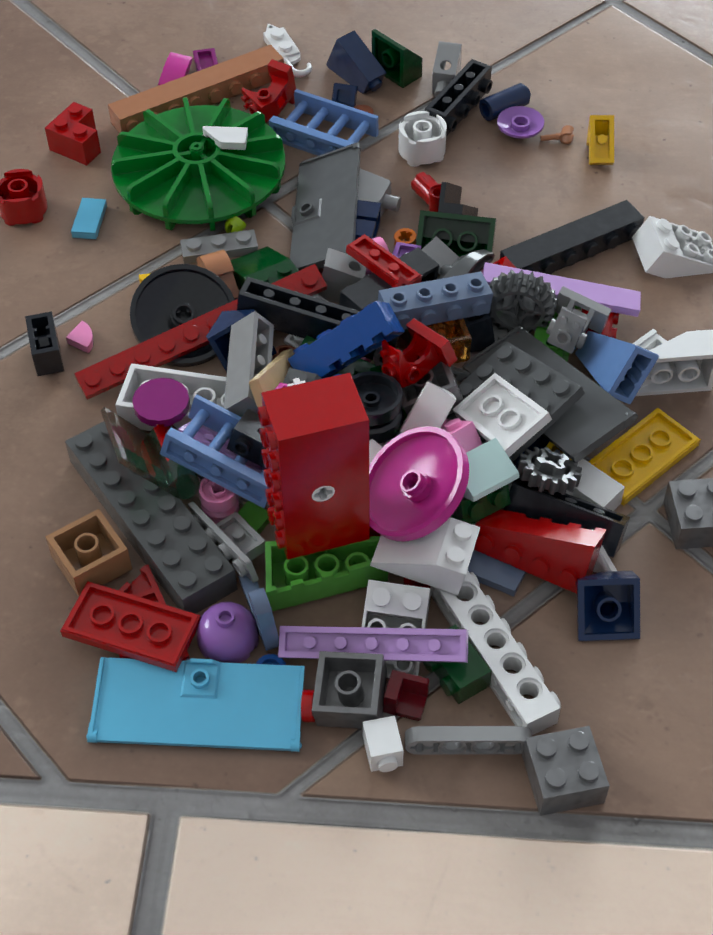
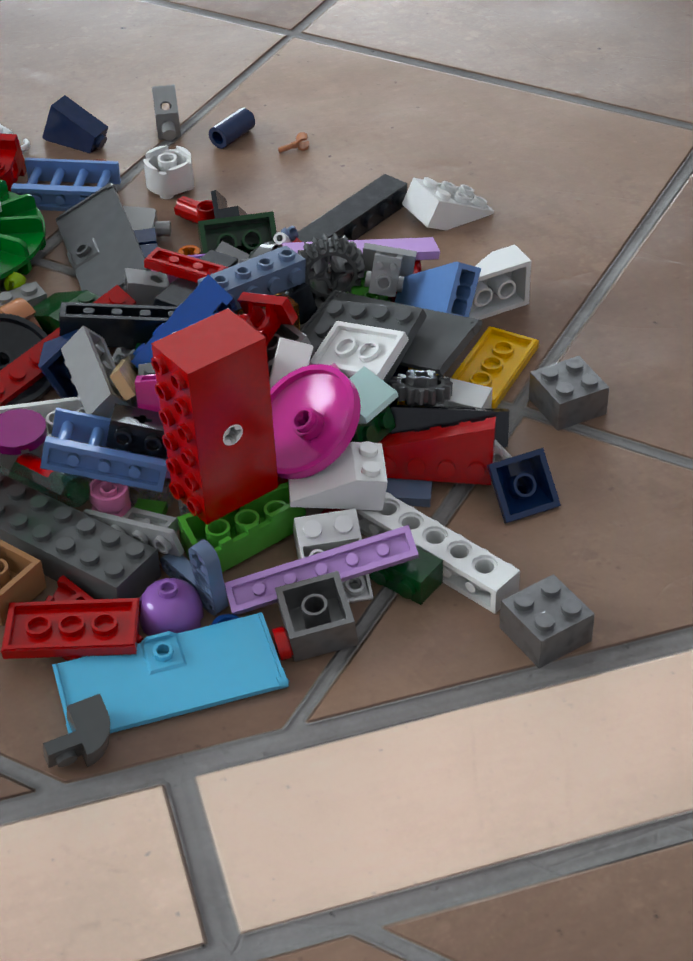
camera: 20 degrees left, 10 degrees down
(103, 746) = (88, 738): none -> dark grey brick
(345, 94) = (74, 151): dark blue tile -> none
(383, 744) = (368, 650): white brick -> none
(400, 63) = (115, 112): dark green slope -> none
(406, 695) = (370, 607): dark red panel -> none
(462, 94) = (191, 125): black brick -> none
(466, 739) = (411, 636): light grey beam -> none
(497, 251) = (286, 235): none -> arm
(520, 122) = (255, 140): medium lavender dish -> none
(601, 139) = (337, 135): yellow slope -> none

